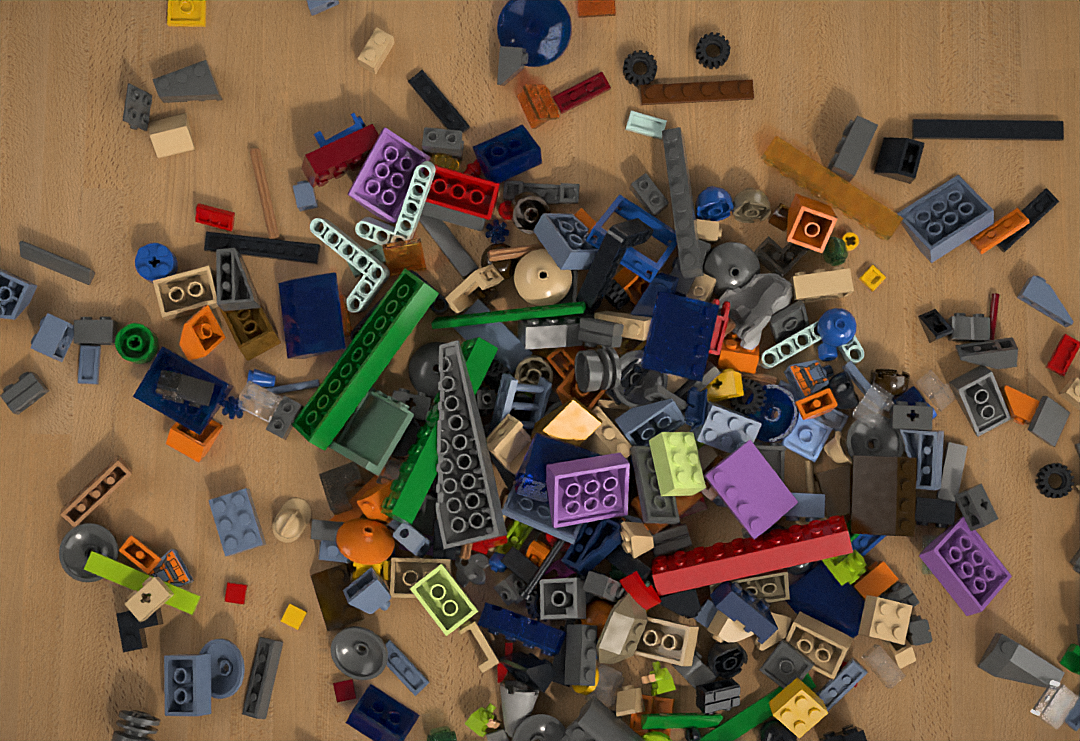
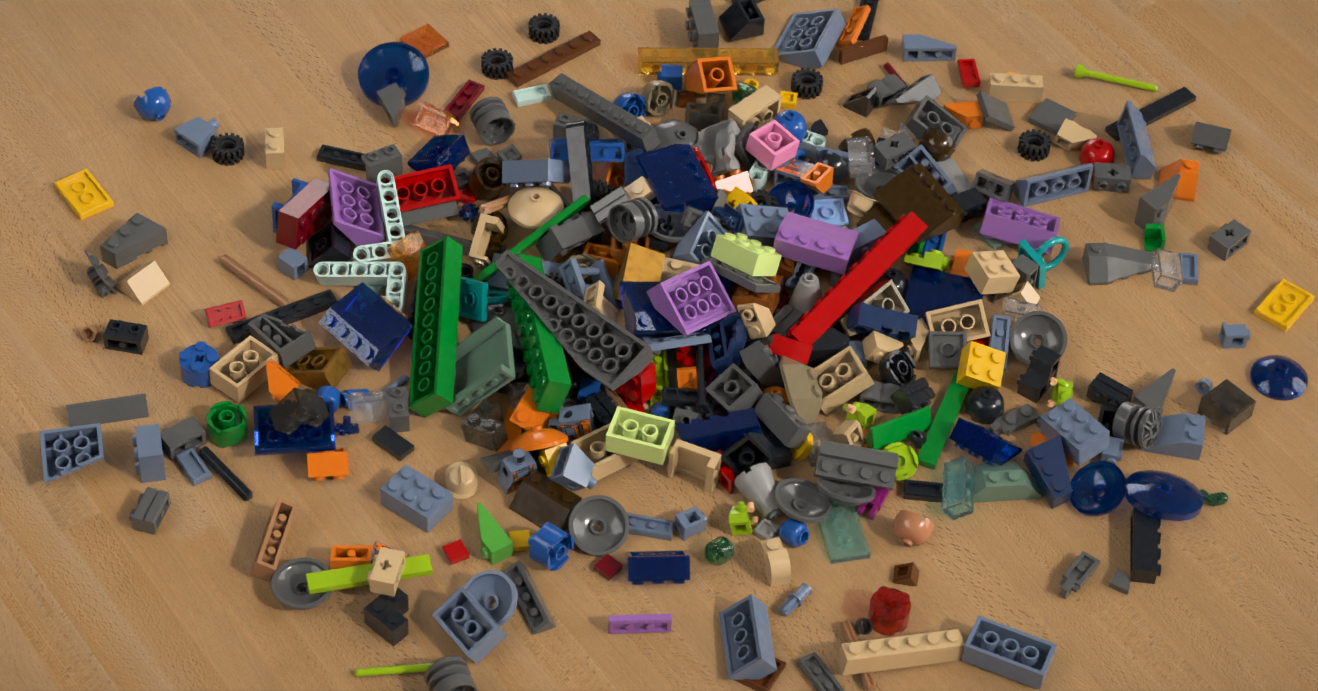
camera: 35 degrees left, 35 degrees down
(95, 165) = (87, 332): none -> medium nougat hinge
(109, 390) = (225, 473): none -> black axle
(118, 190) = (126, 336): none -> black brick
(153, 704) = (388, 670): none -> lime piece
(235, 369) = (330, 394): none -> blue head
(261, 446) = (393, 443): none -> black tile
(269, 605) = (493, 540): none -> bright green slope
(305, 648) = (550, 546): none -> blue brick
(340, 34) = (227, 156): none -> black tyre
(342, 204) = (329, 246): none -> black slope
(420, 344) = (476, 297): none -> teal tile
(432, 699) = (690, 522): none -> sand blue brick
(551, 174) = (483, 153): none -> dark grey tile
(581, 143) = (492, 120): none -> dark grey wheel
(699, 530) = (806, 293): none -> light grey cone
(783, 185) = (672, 75): none -> blue brick
(802, 343) = (772, 145): none -> bright pink brick
(872, 332) = (819, 128): none -> black tile
(872, 716) = (1039, 326): none -> dark grey dish
(914, 269) = (807, 76): none -> black tyre
(940, 623) = (1036, 256): none -> teal tile
(957, 429) = (937, 145): none -> dark brown cylinder
(986, 264) = (863, 49): none -> reddish brown tile
(1034, 539) = (1053, 184): none -> sand blue slope

